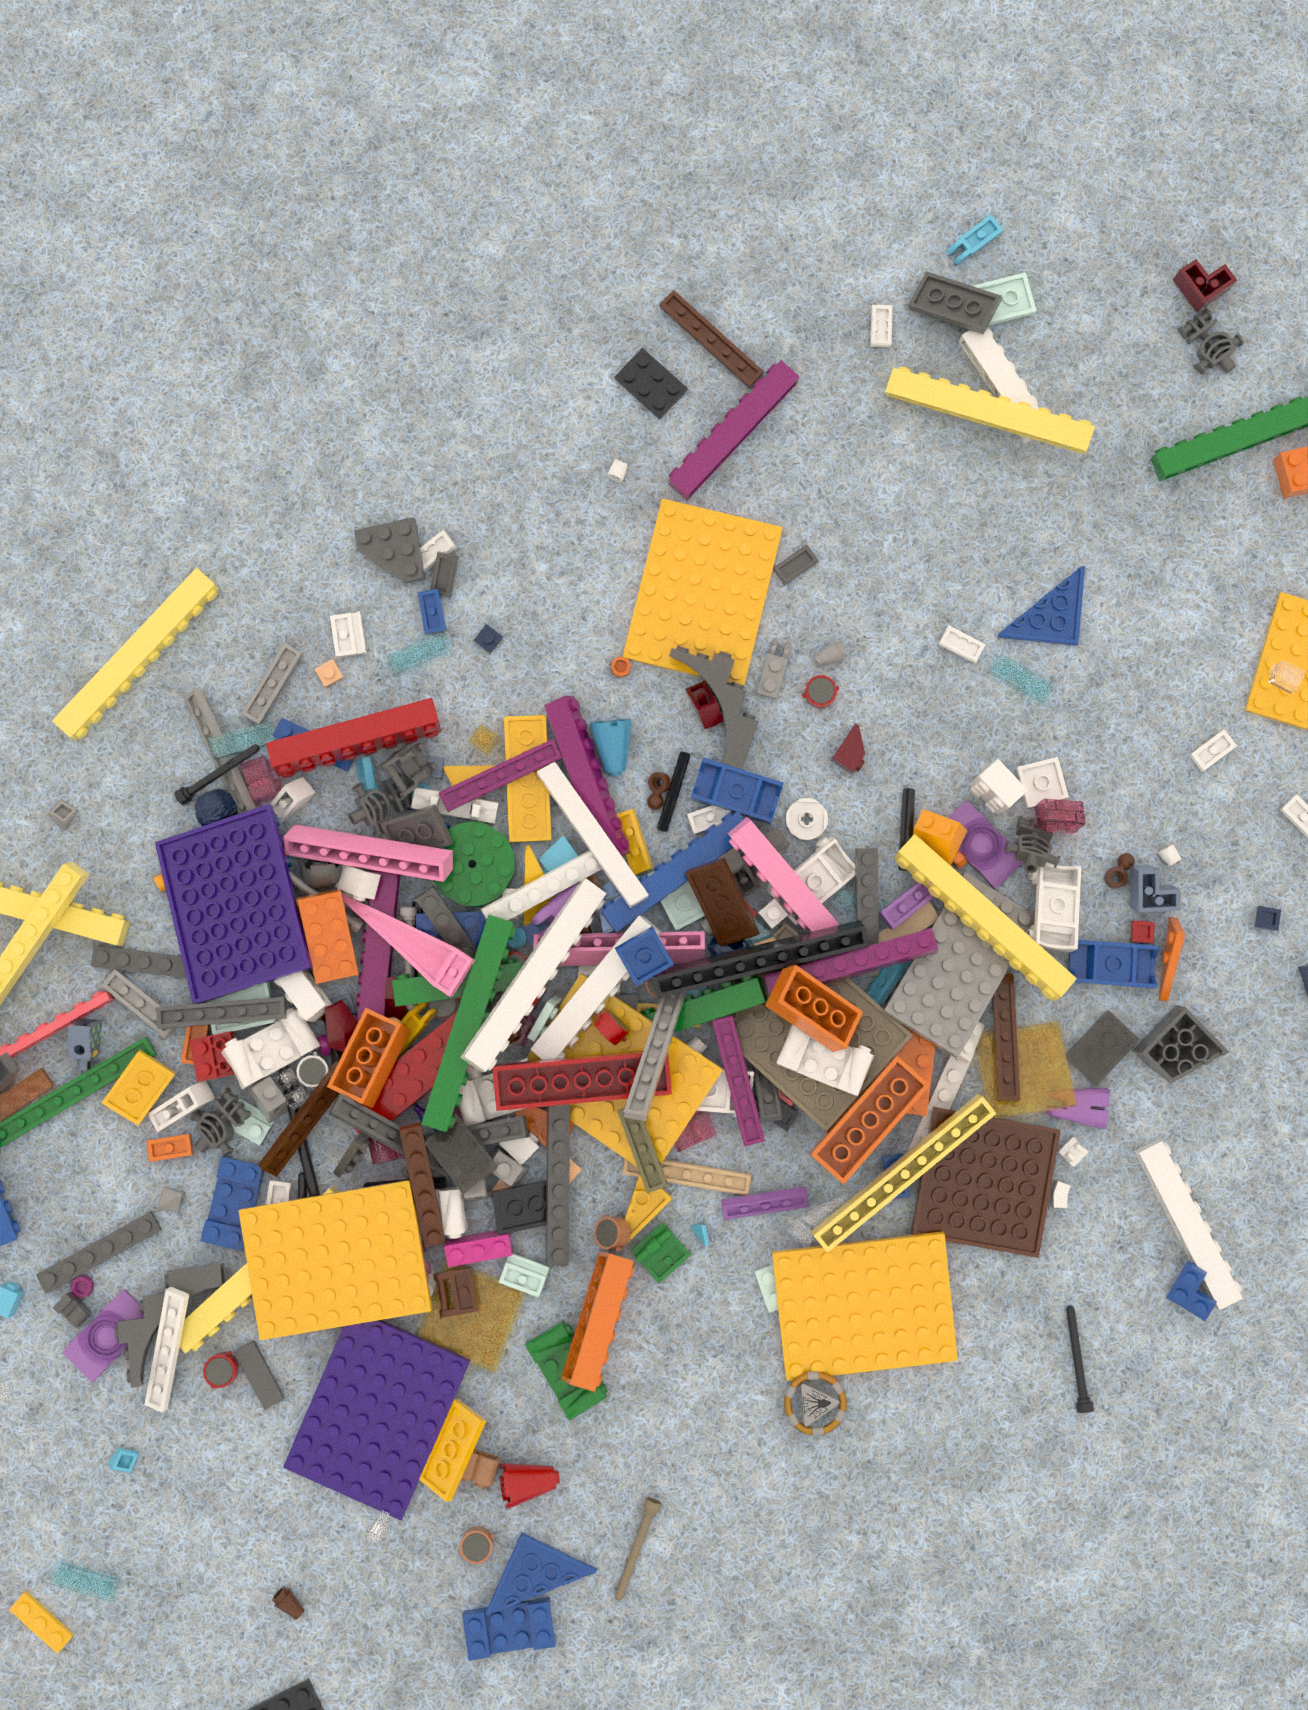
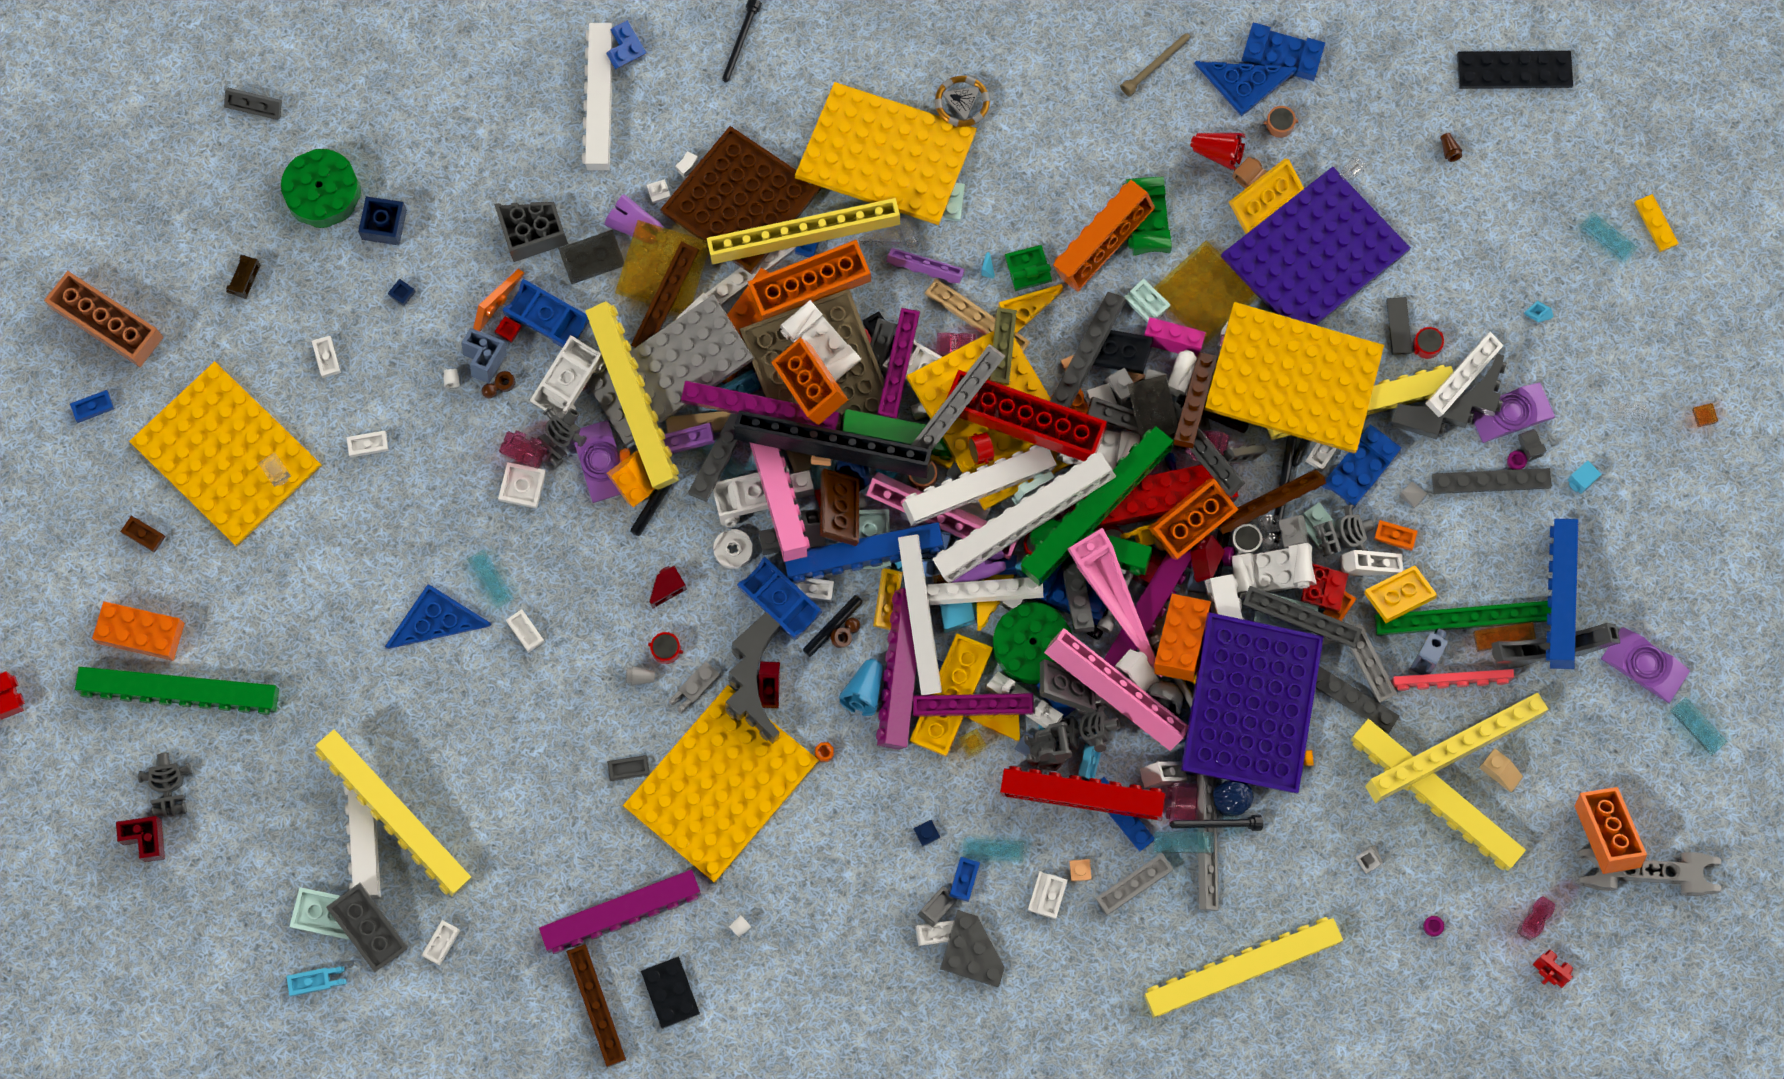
camera: 155 degrees left, 10 degrees down
(463, 1292) = (1202, 308): reddish brown plate -> none
(612, 1233) = (1060, 298): piece -> none
(644, 956) = (926, 485): blue plate -> none
(997, 787) = (564, 491): white brick -> none

